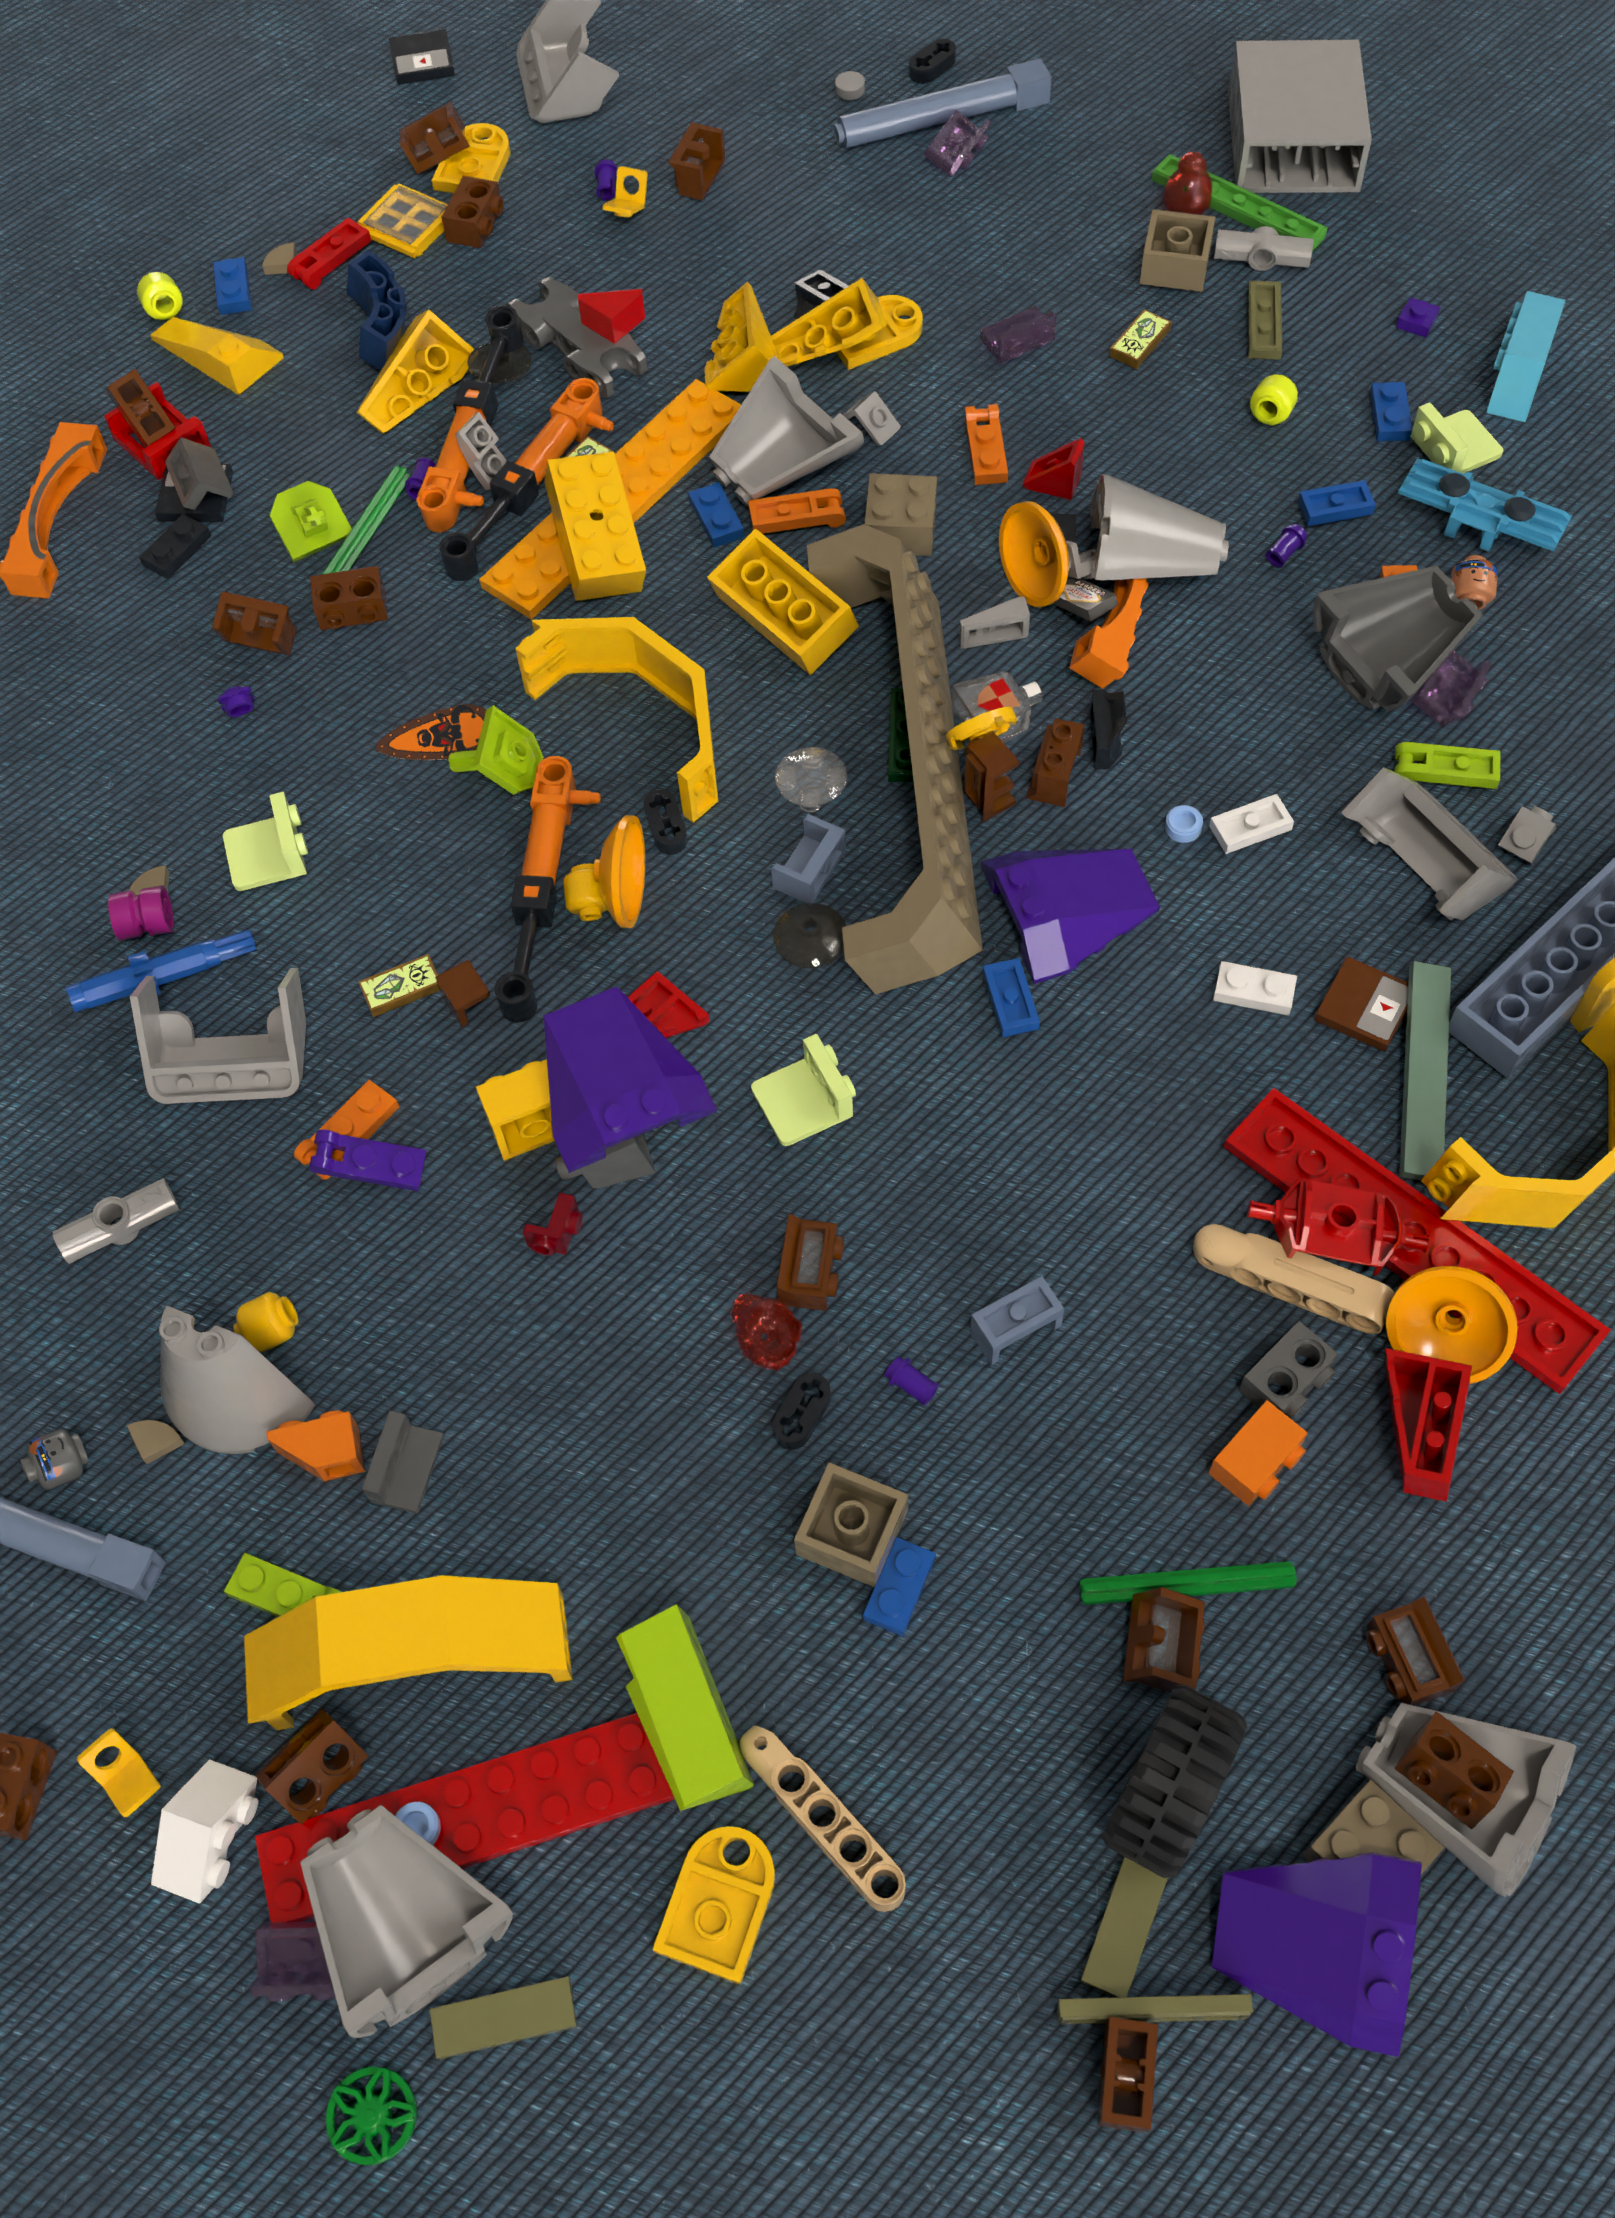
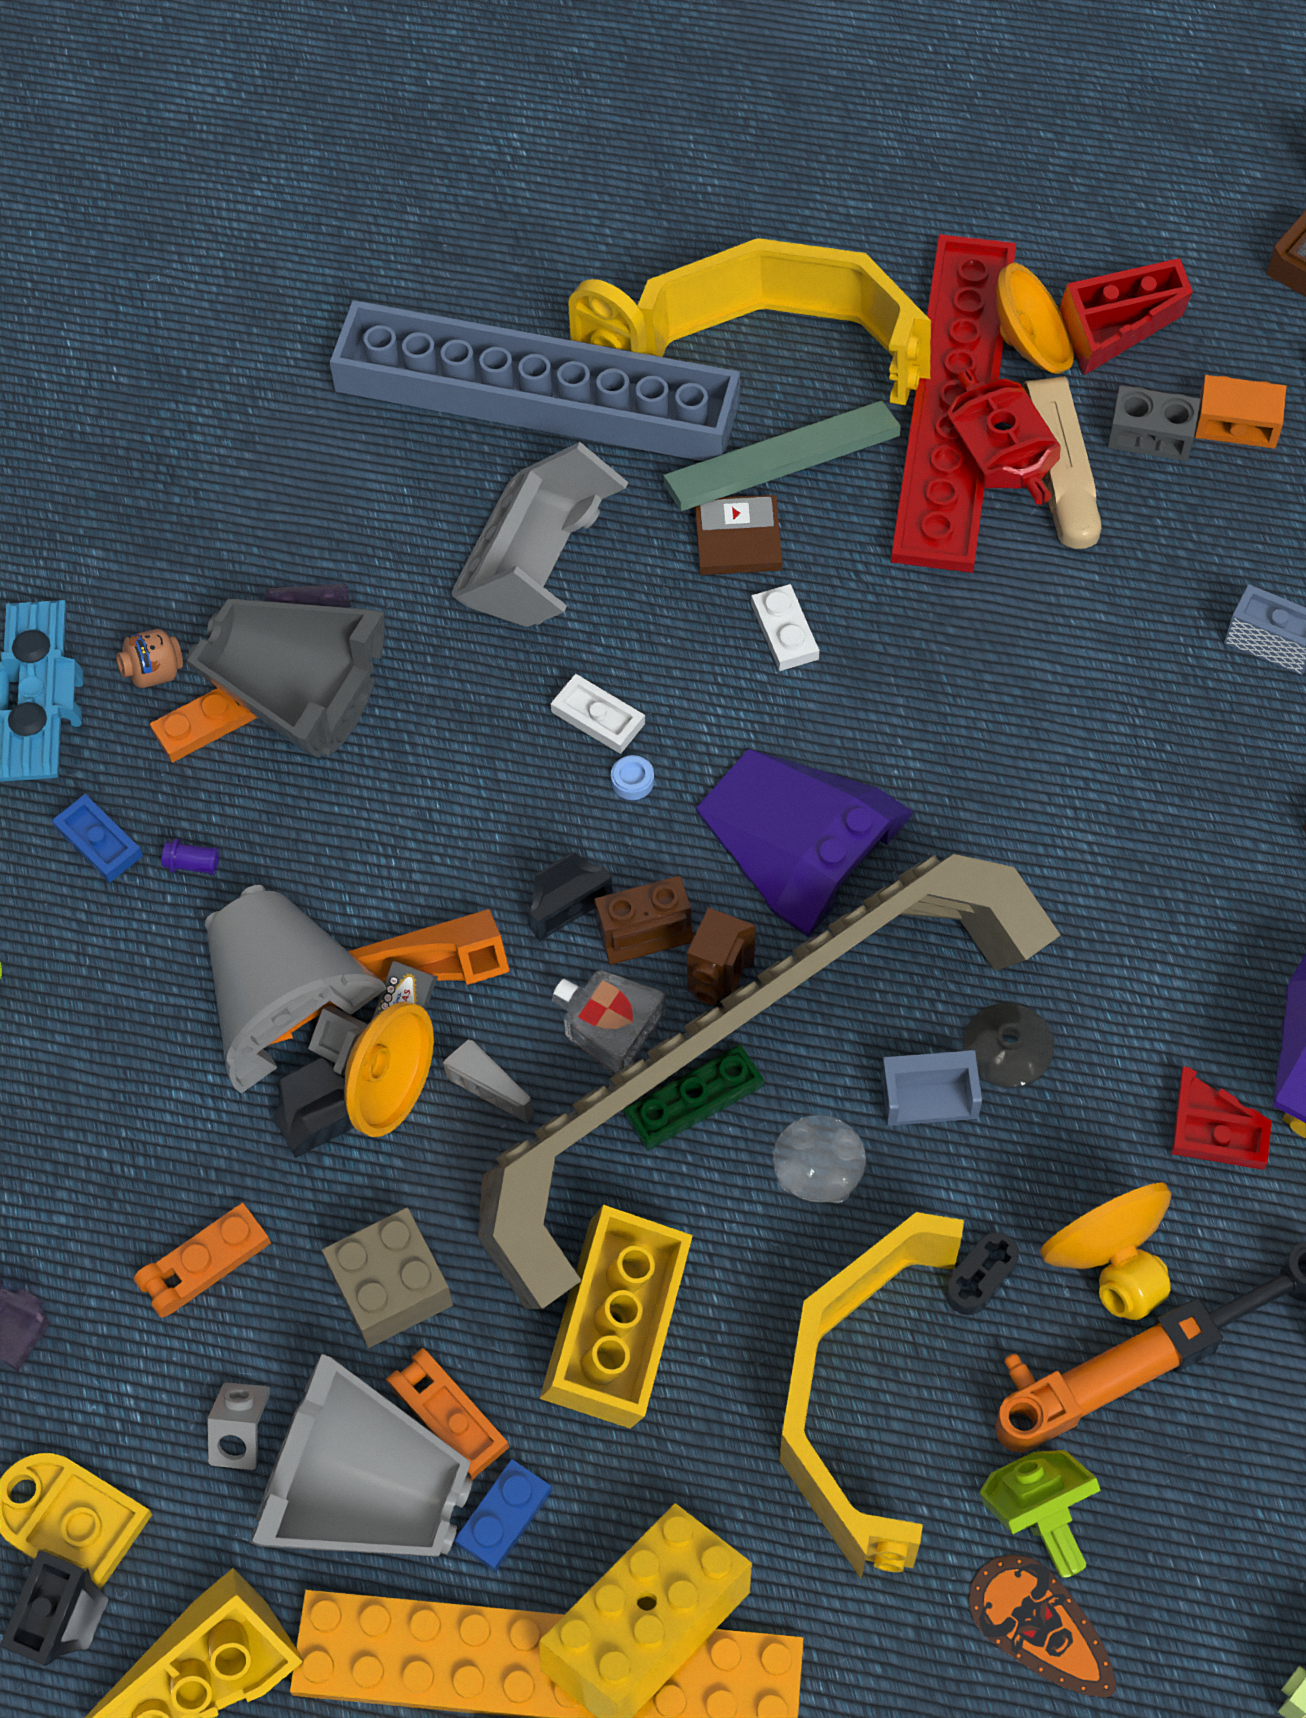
camera: 125 degrees left, 0 degrees up
(805, 1094) = (1196, 928): yellowish green bracket -> none
(831, 326) = (125, 1535): yellow wedge -> none
(980, 726) = (685, 971): yellow tile -> none
(1011, 997) = (952, 814): blue plate -> none
(1057, 471) = (212, 1146): red slope -> none
(1448, 764) = (411, 584): lime plate -> none
(1528, 833) = (454, 486): light grey bracket -> none

